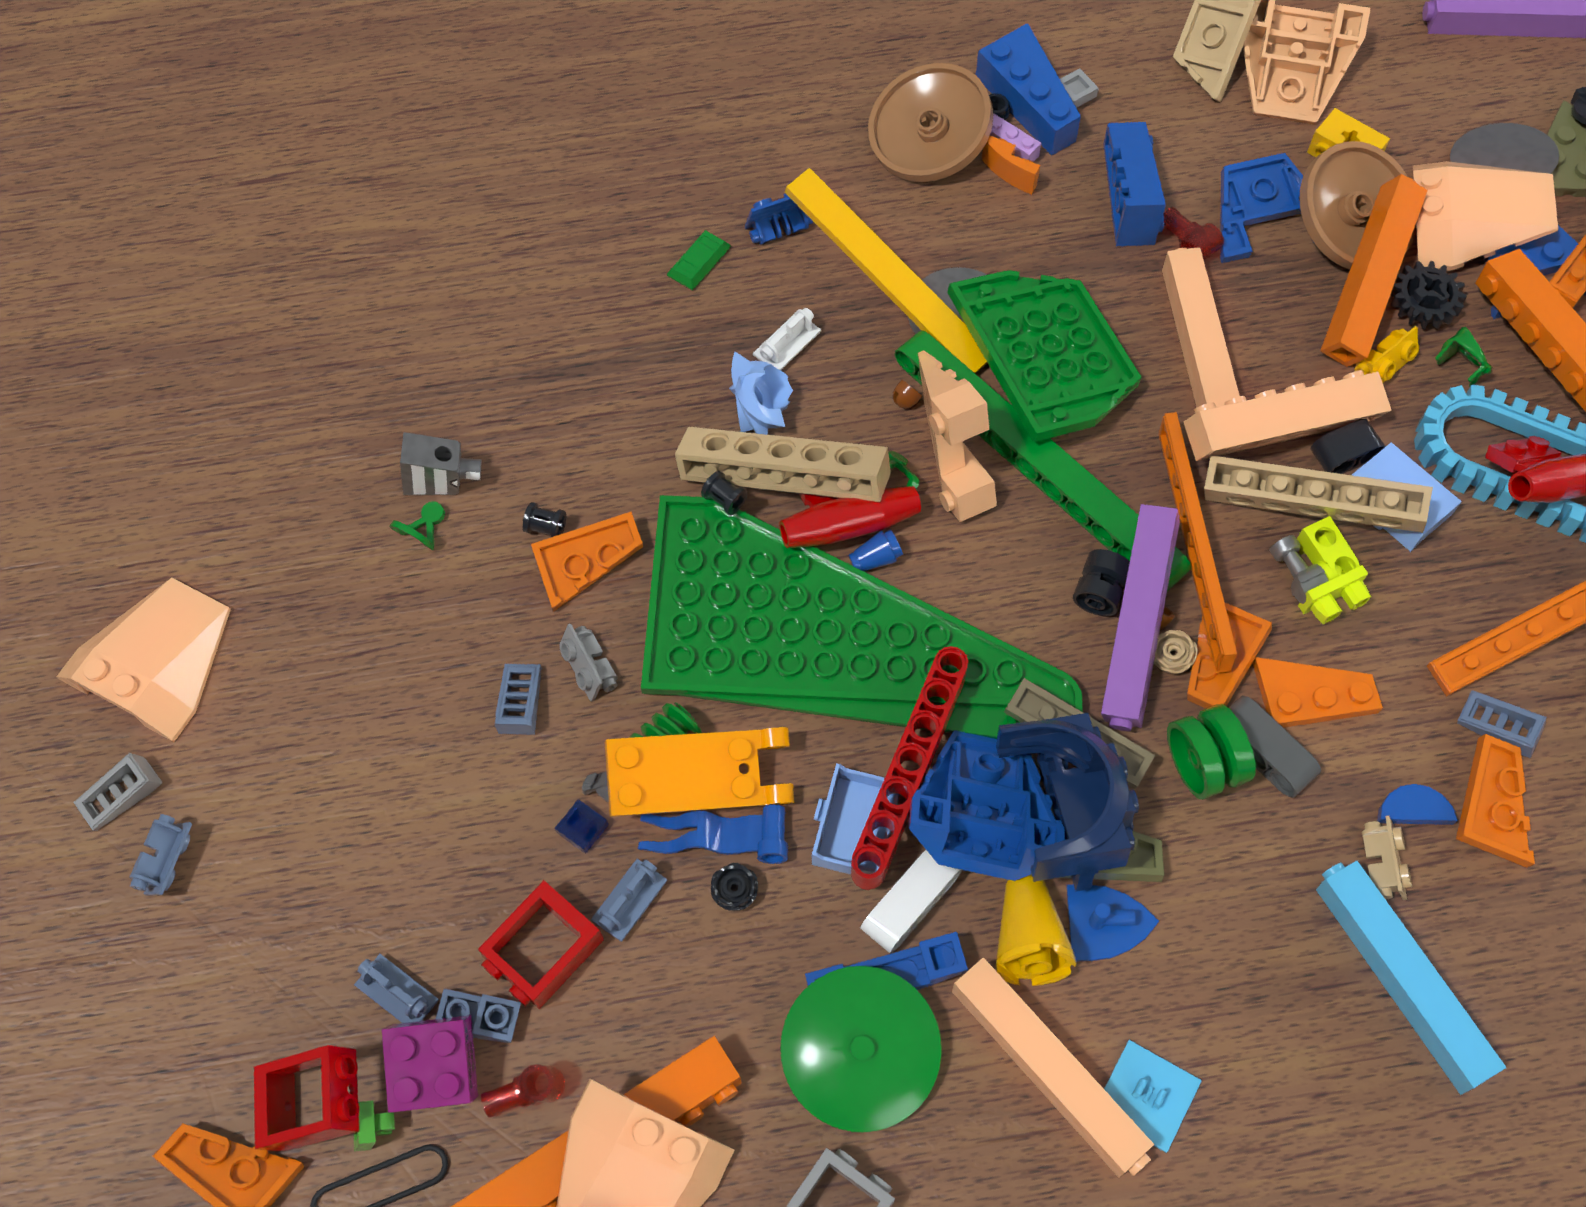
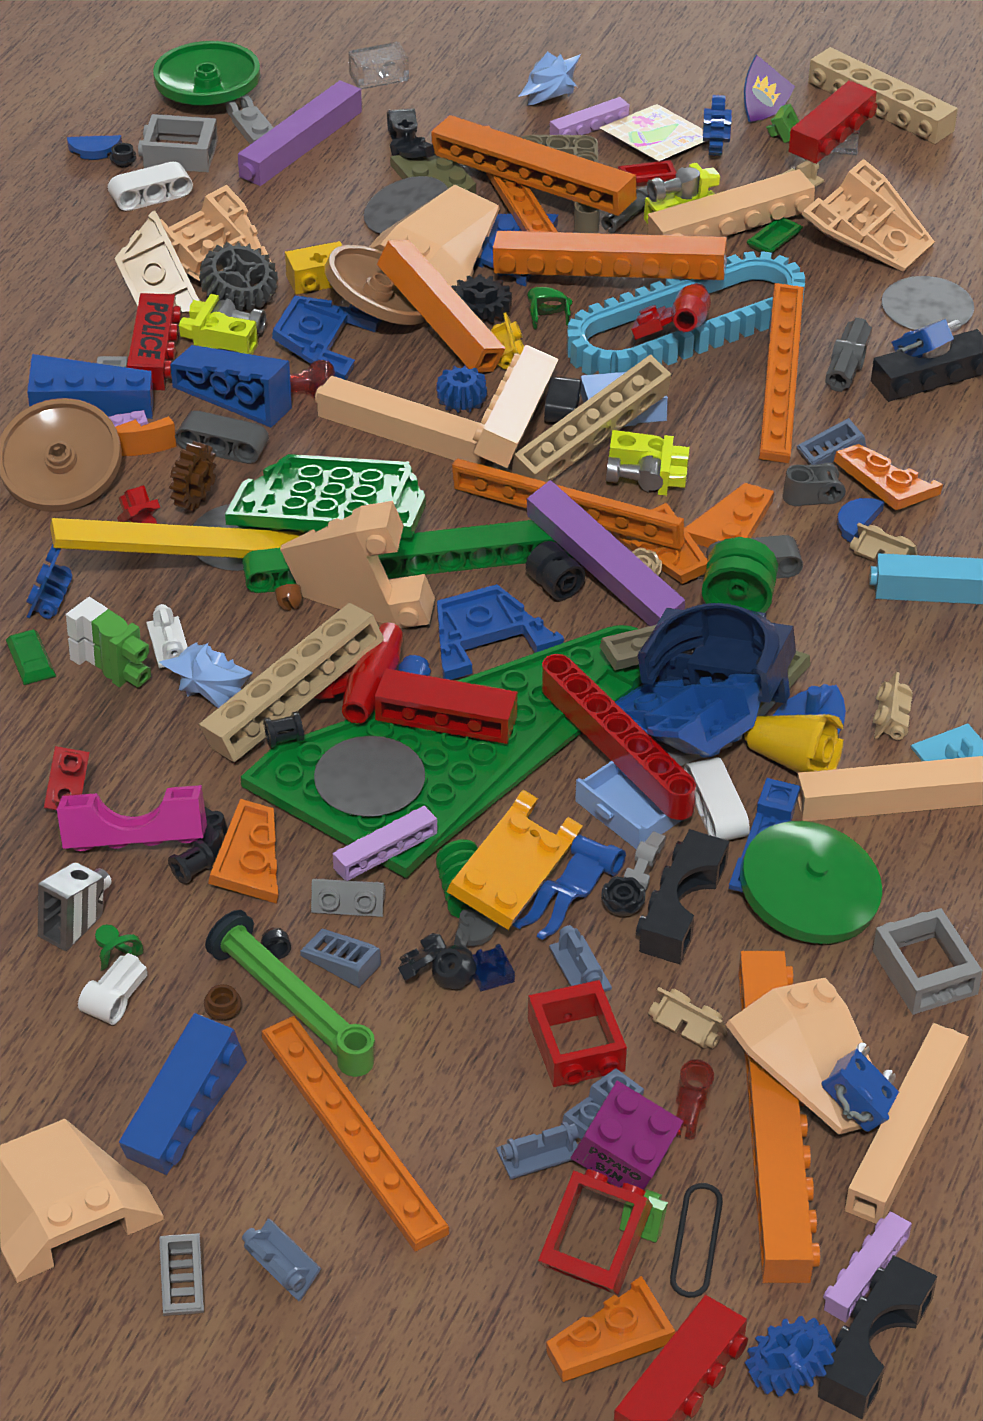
camera: 60 degrees left, 20 degrees down
(284, 677) = (183, 1094): none -> blue wedge
(334, 830) = (355, 1134): none -> orange tile
(360, 555) = (110, 995): none -> white piece
(406, 634) = (222, 1002): none -> reddish brown plate
(470, 608) = (349, 1042): none -> bright green piece
(499, 639) = (277, 942): none -> black hinge
(527, 423) = (90, 823): none -> dark pink arch
(547, 763) = (416, 959): none -> black piece
(555, 795) = (460, 974): none -> black plate
(562, 375) = (66, 775): none -> red hips
(593, 508) = (215, 830): none -> black piece
(625, 1012) = (701, 1023): none -> tan hinge
(649, 654) = (384, 843): none -> lavender piece
(729, 592) = (369, 776): none -> flat silver sticker
(733, 301) = (107, 643): none -> bright green hips
(788, 879) = (646, 857): none -> light grey piece
(813, 928) = (695, 867): none -> black arch
(845, 601) = (446, 706): none -> red brick
(910, 221) = (137, 506): none -> red hips
(978, 230) = (192, 475): none -> reddish brown gear
(995, 559) = (483, 618): none -> blue wing
(1061, 219) = (227, 436): none -> dark grey beam
(1137, 91) = (155, 336): none -> red brick
(1144, 998) = (893, 708): none -> tan hinge
(1195, 126) = (221, 326): none -> neon yellow hips
(1250, 83) = (240, 272): none -> dark grey gear
(1287, 357) = (461, 389): none -> blue gear
(1424, 740) = (810, 483): none -> dark grey piece

